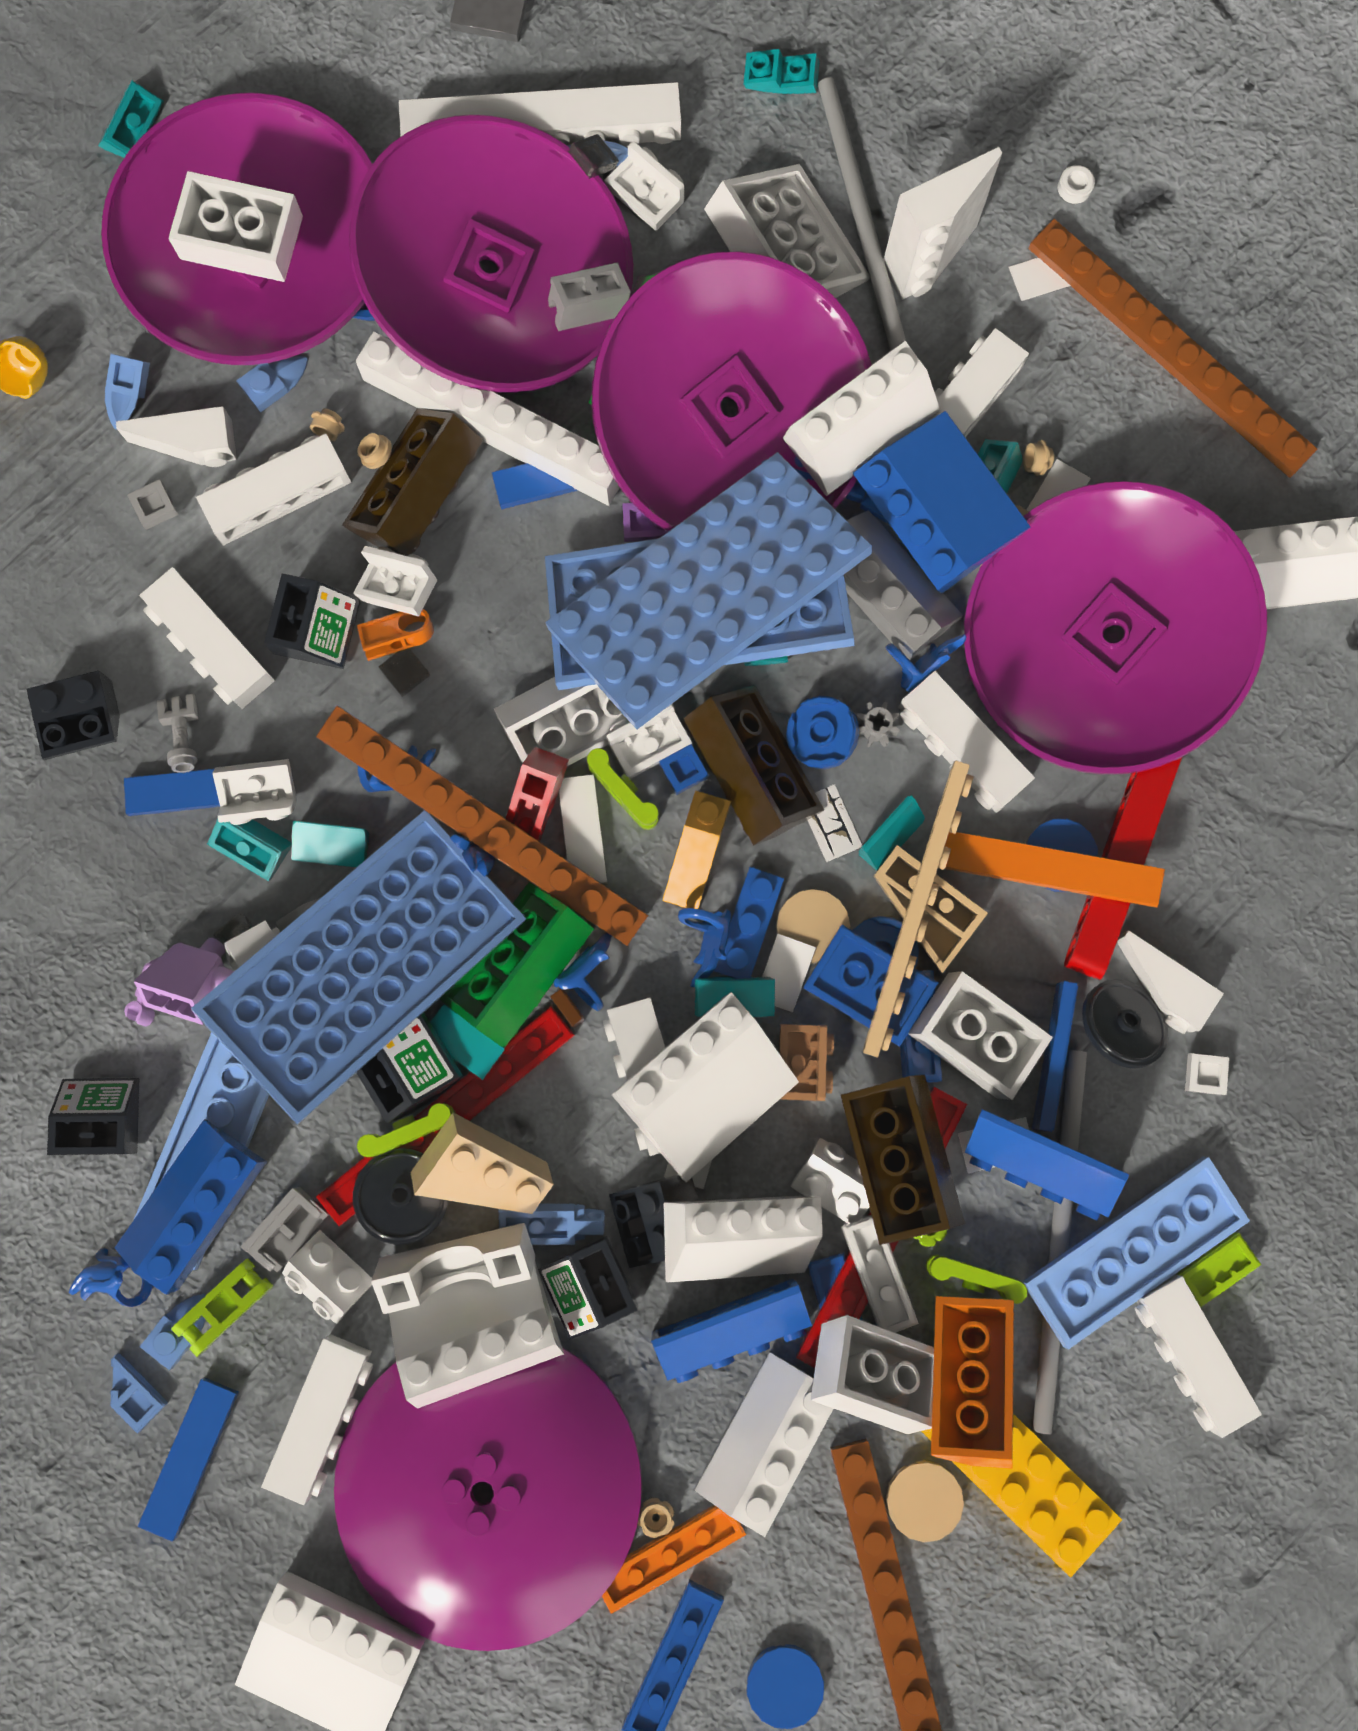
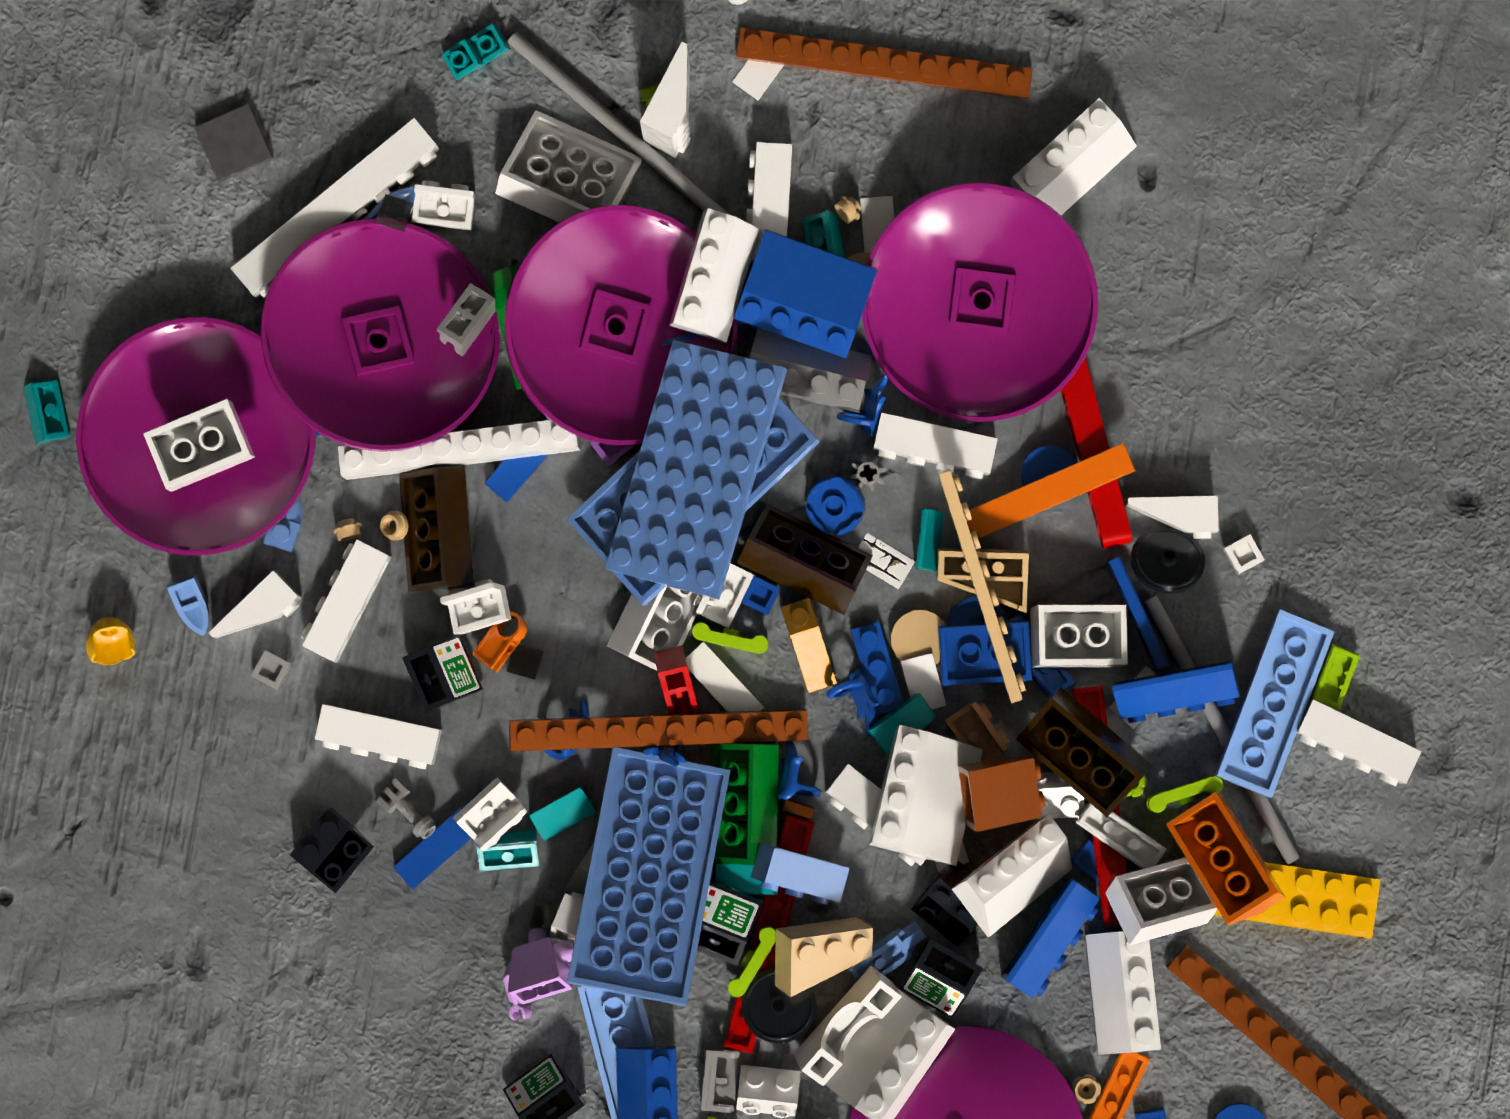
camera: 30 degrees left, 5 degrees up
(518, 1074) = (799, 874): none -> brick
(787, 1138) = (1000, 792): none -> dark orange slope
(924, 1501) = (1248, 957): tan tile -> none

